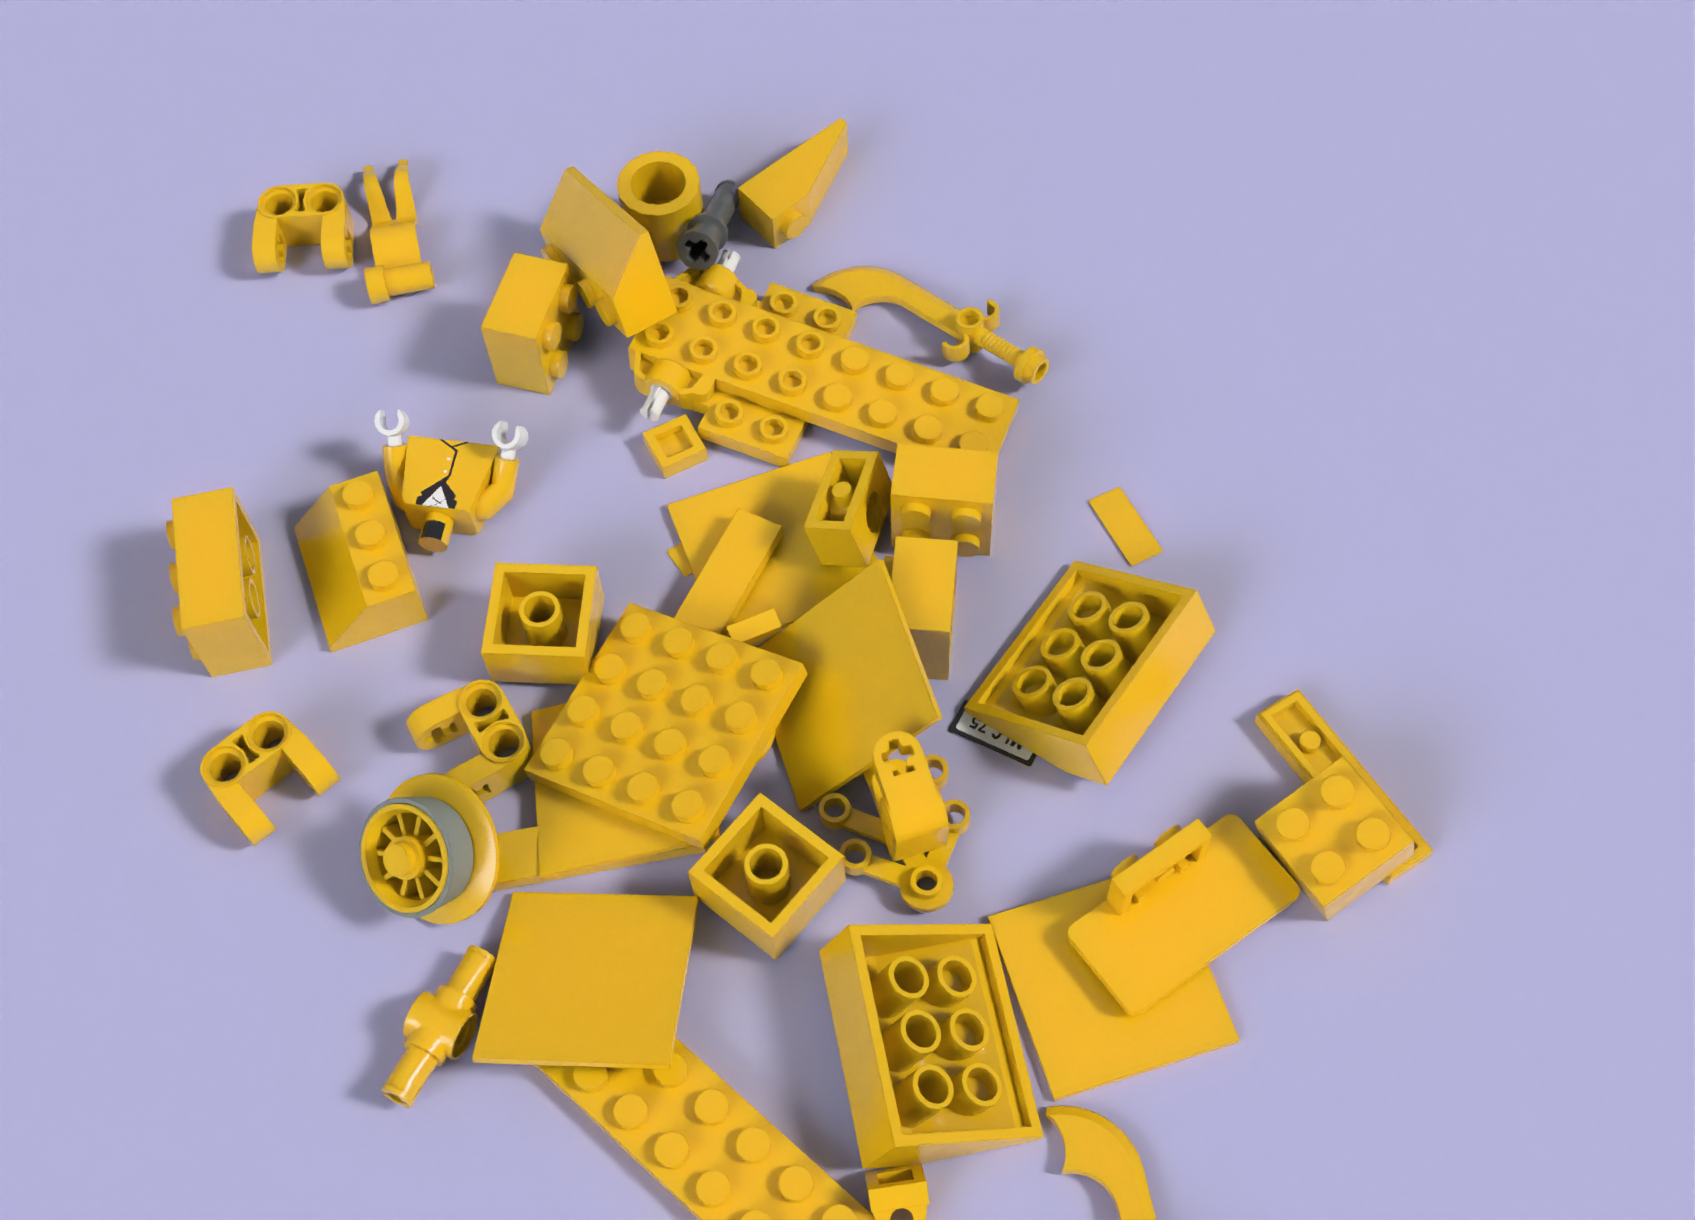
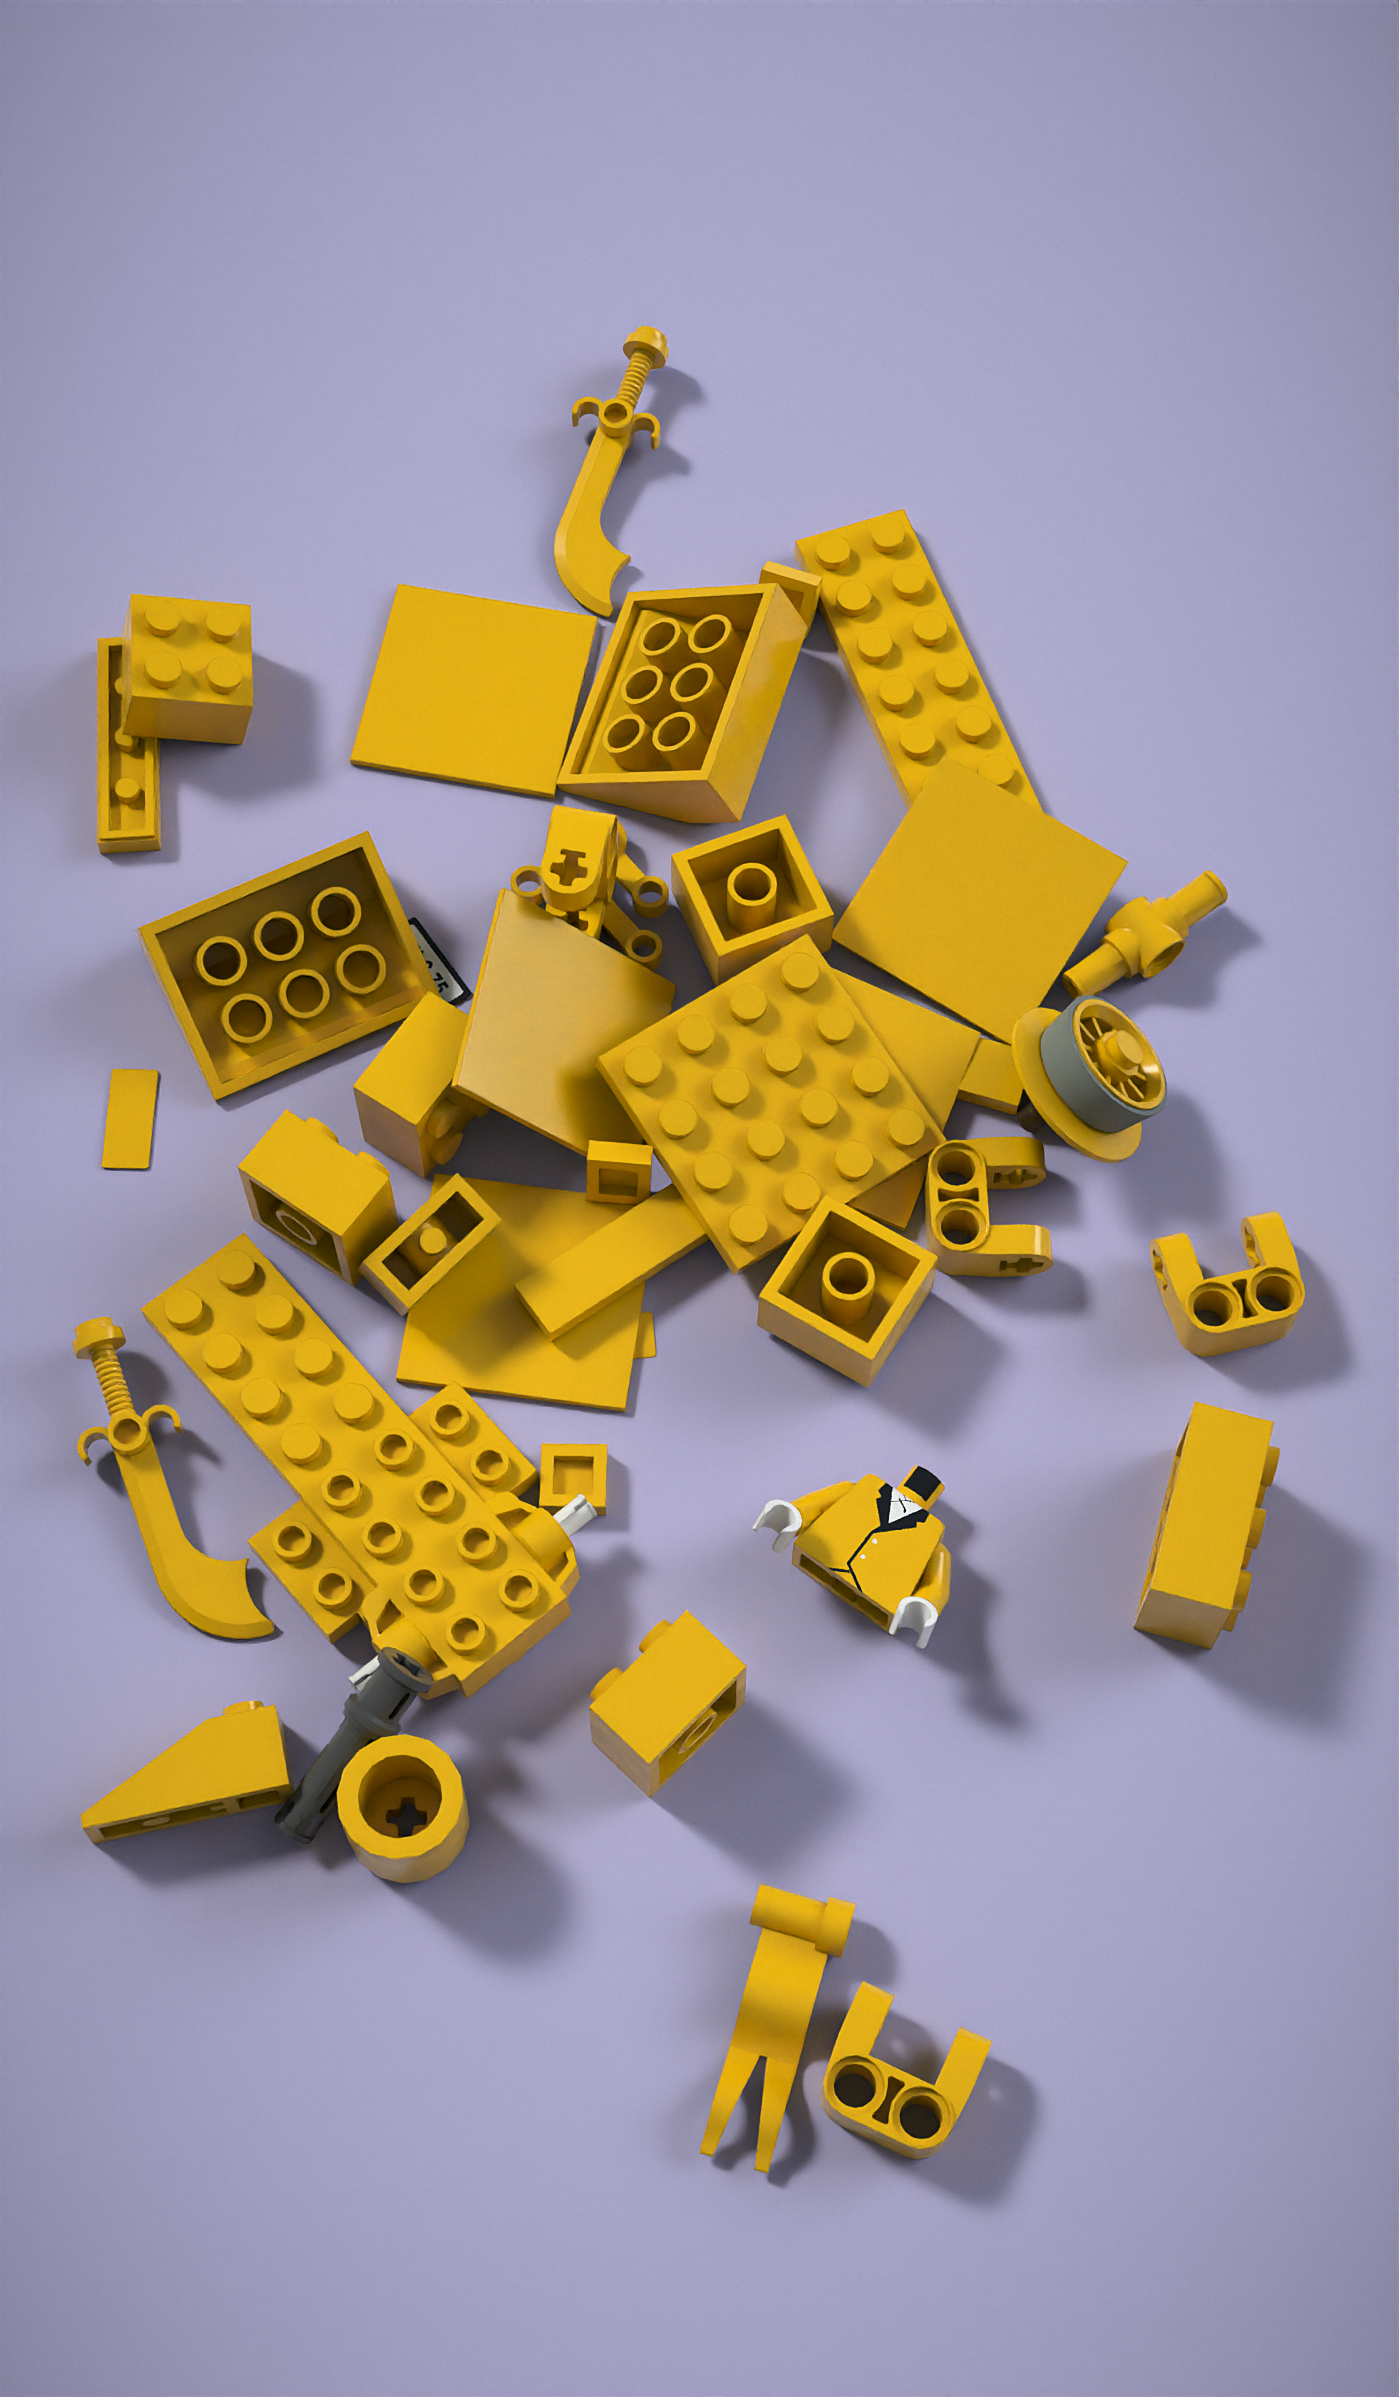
camera: 155 degrees left, 5 degrees up
(358, 563) = (1028, 1501): yellow slope -> none
(606, 255) = (534, 1727): yellow slope -> none
(1180, 909) = (371, 694): yellow bracket -> none

